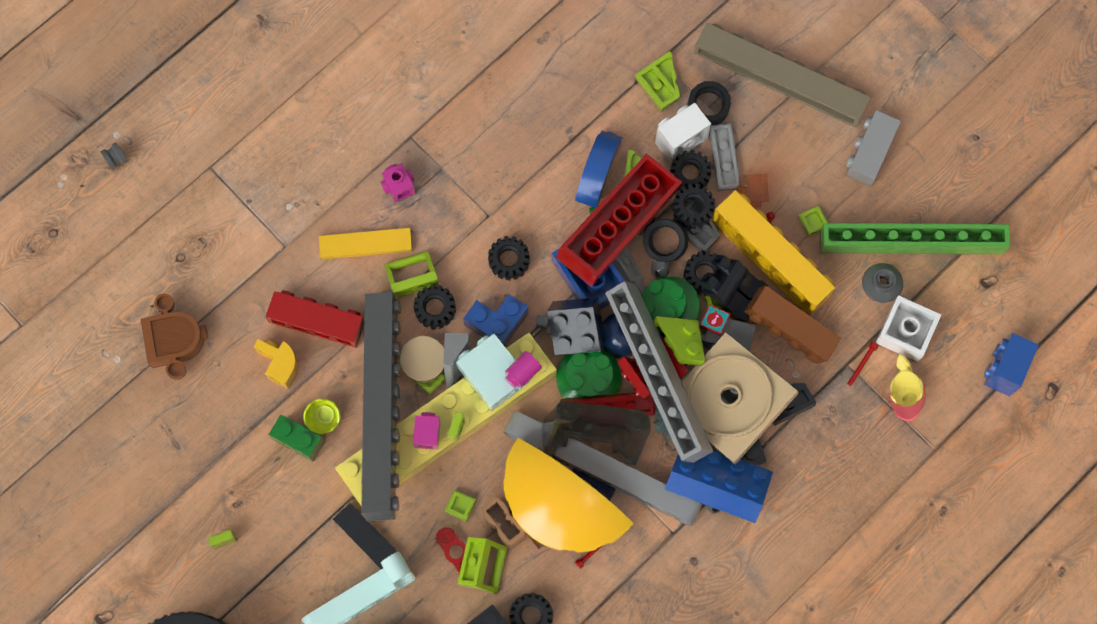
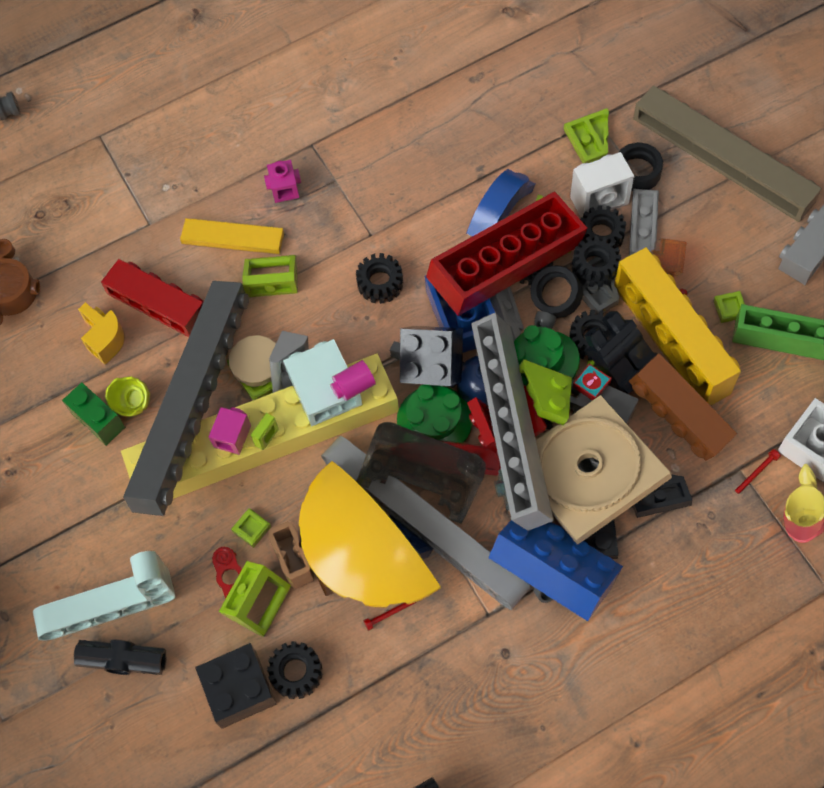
camera: 20 degrees right, 10 degrees down
(364, 534) = (132, 530): black tile -> none
(434, 293) = (280, 299): black tyre -> none
(501, 323) = (354, 340): blue brick -> none
(882, 292) = (794, 397): dark grey piece -> none

